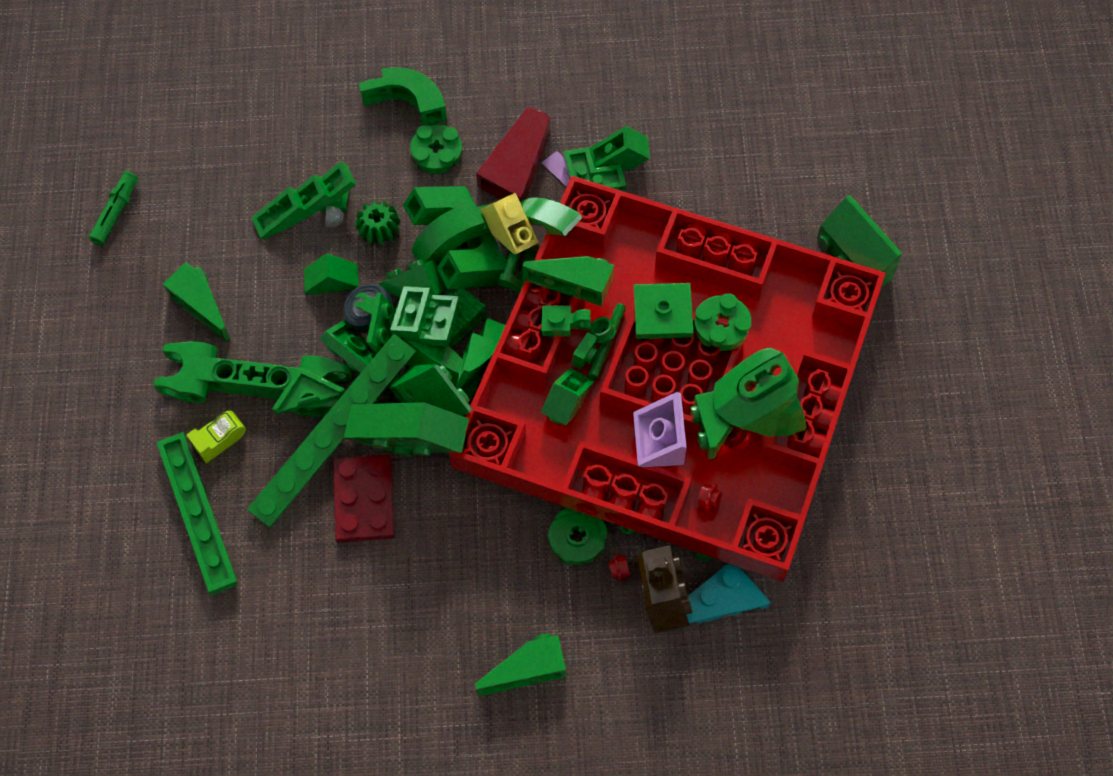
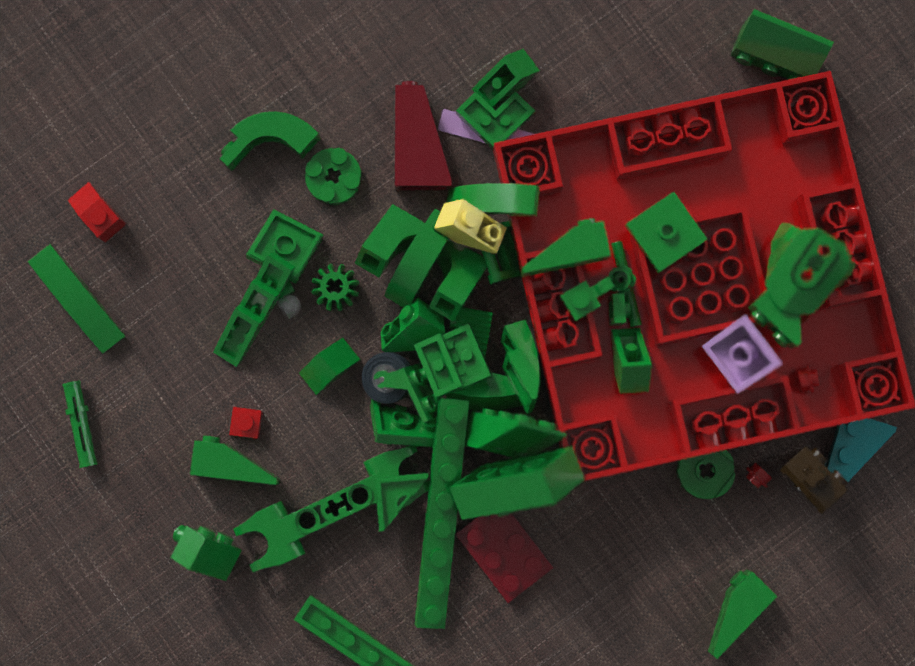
camera: 40 degrees left, 20 degrees up
(128, 345) = (204, 551): none -> green brick
(181, 122) = (76, 298): none -> green slope
(217, 436) = (340, 579): lime leg -> none
(236, 280) = (245, 422): none -> red plate
(242, 77) = (96, 212): none -> red slope
(368, 172) = (286, 239): none -> green plate
(727, 308) = (740, 206): green plate -> none

